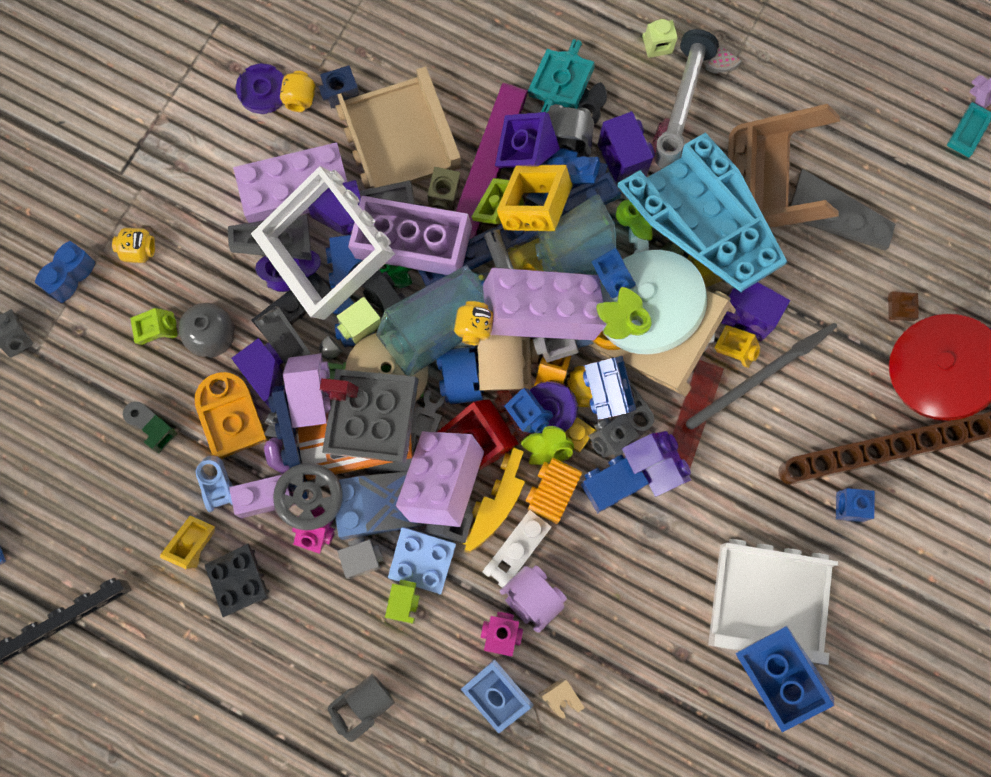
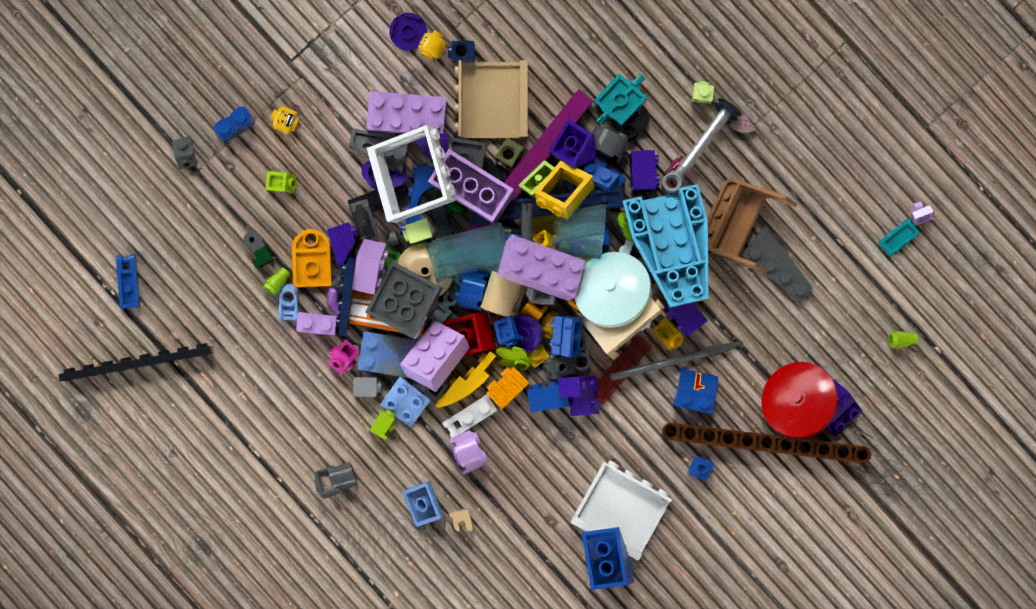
camera: 20 degrees right, 10 degrees up
(188, 459) = (277, 281): none -> lime cone
(188, 543) = (260, 337): yellow slope -> none
(206, 330) = (315, 197): dark grey cylinder -> none
(236, 580) = (282, 372): black hinge -> none
(295, 476) = (342, 321): dark grey plate -> none
(338, 389) = (388, 277): dark red plate -> none
(473, 322) = (489, 267): yellow head -> none
(495, 644) = (432, 470): dark pink brick -> none
(613, 272) = (593, 263): blue bracket -> none
(621, 313) = (587, 293): lime plate -> none
(805, 407) = (696, 391): none -> blue slope
(903, 306) = (794, 346): reddish brown tile -> none

